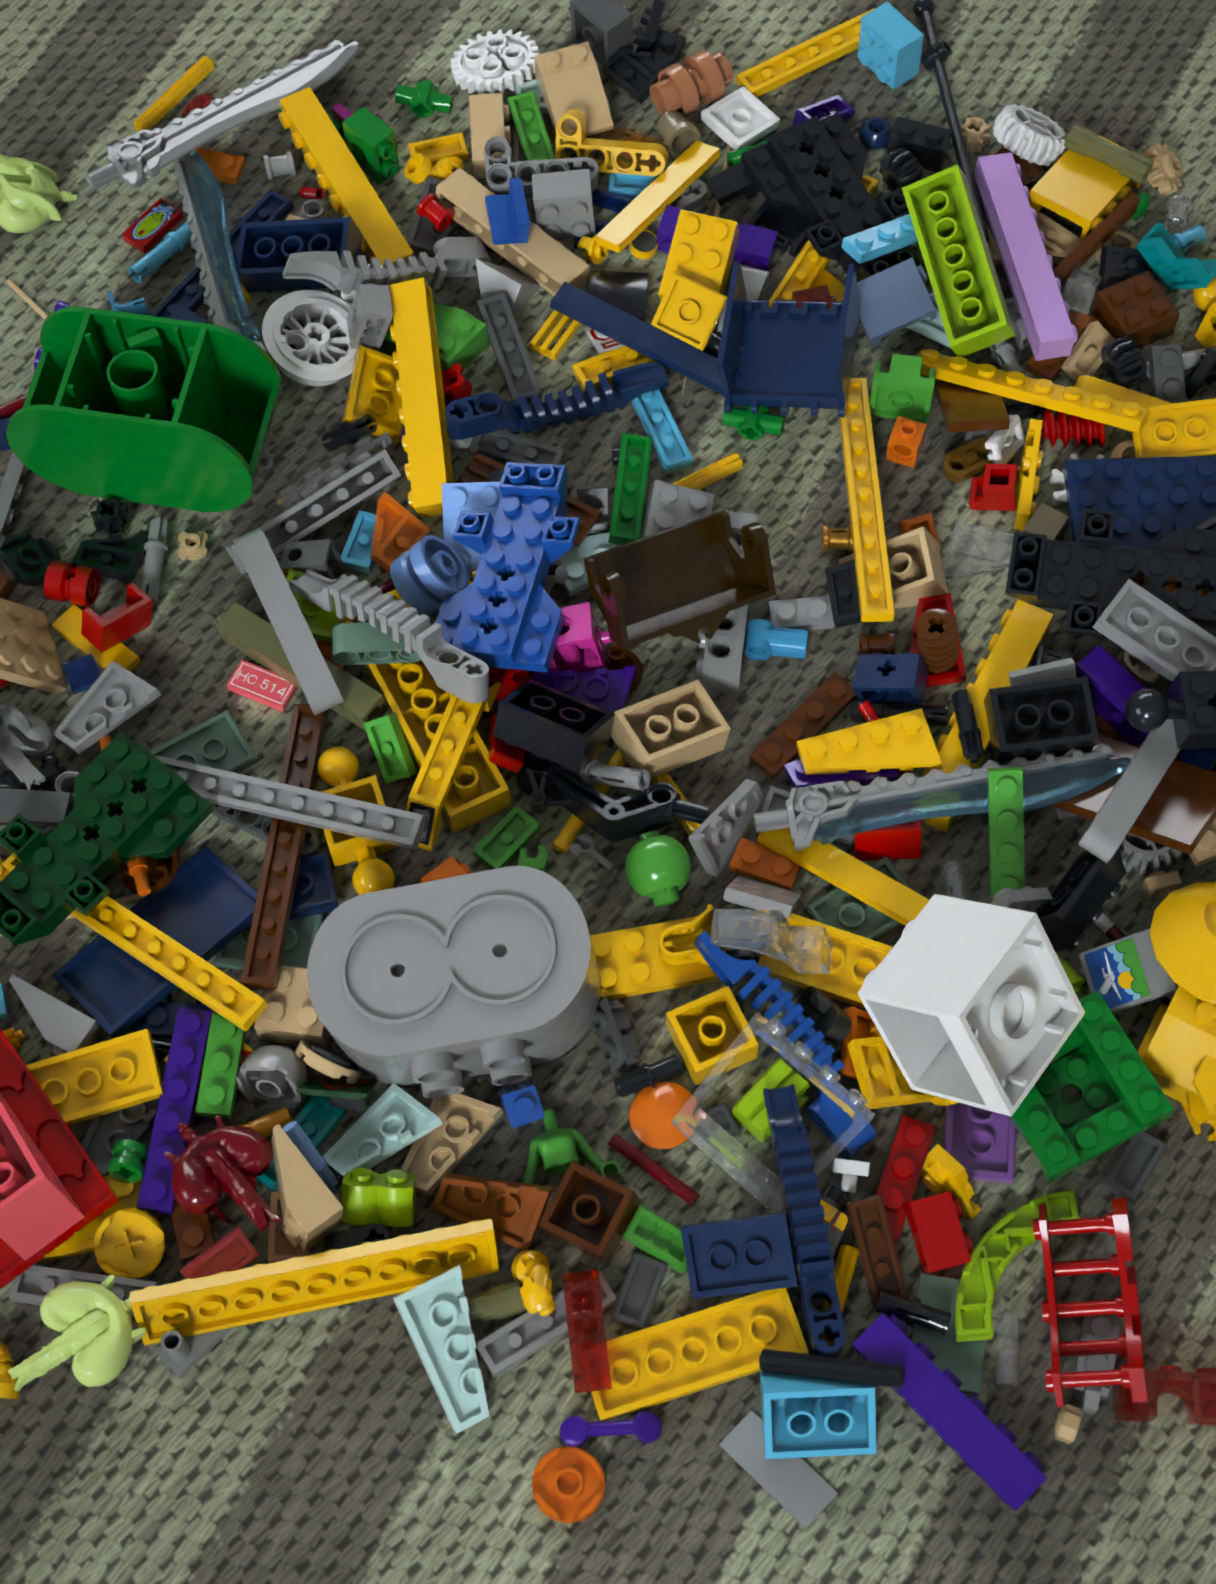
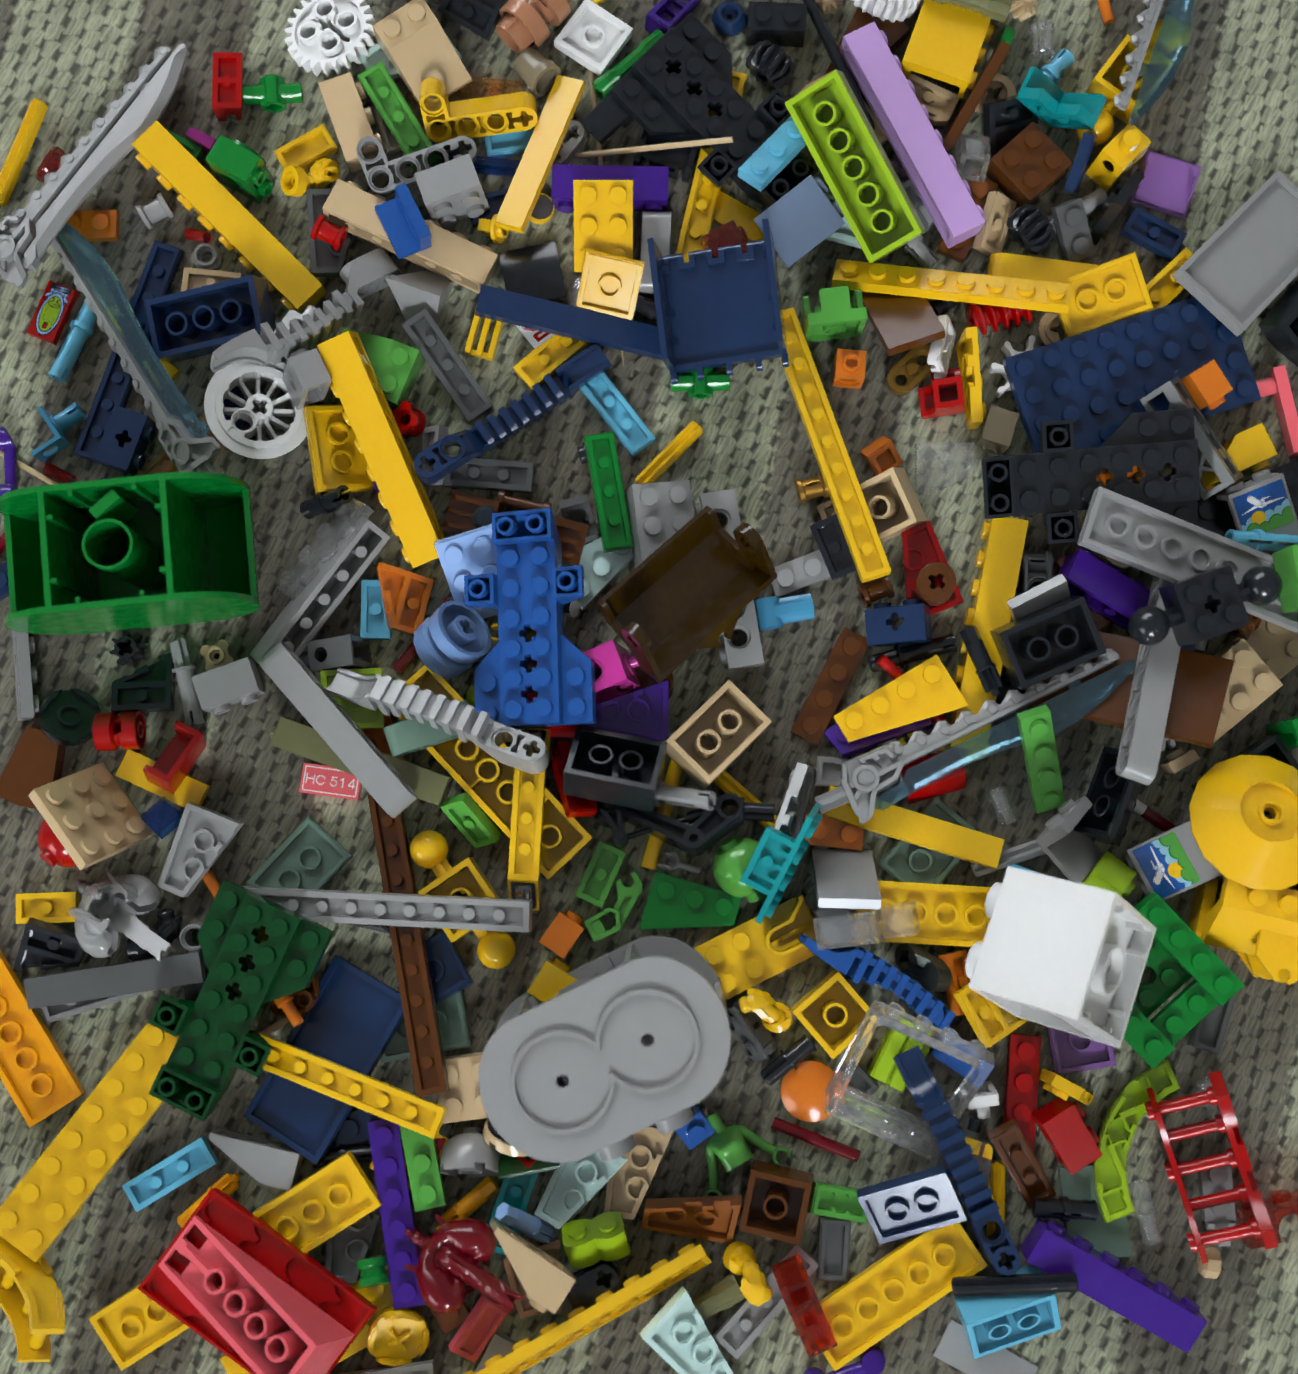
camera: 15 degrees left, 20 degrees up
(194, 571) = (228, 685): none -> light grey brick
(384, 81) = (227, 85): none -> red hinge
(599, 895) = (687, 905): none -> green wing
(648, 1027) = (774, 1015): none -> yellow arm
(696, 854) = (773, 860): none -> teal bracket
(771, 213) = (654, 147): none -> tan axle
(1188, 316) = (1080, 162): none -> dark blue tile

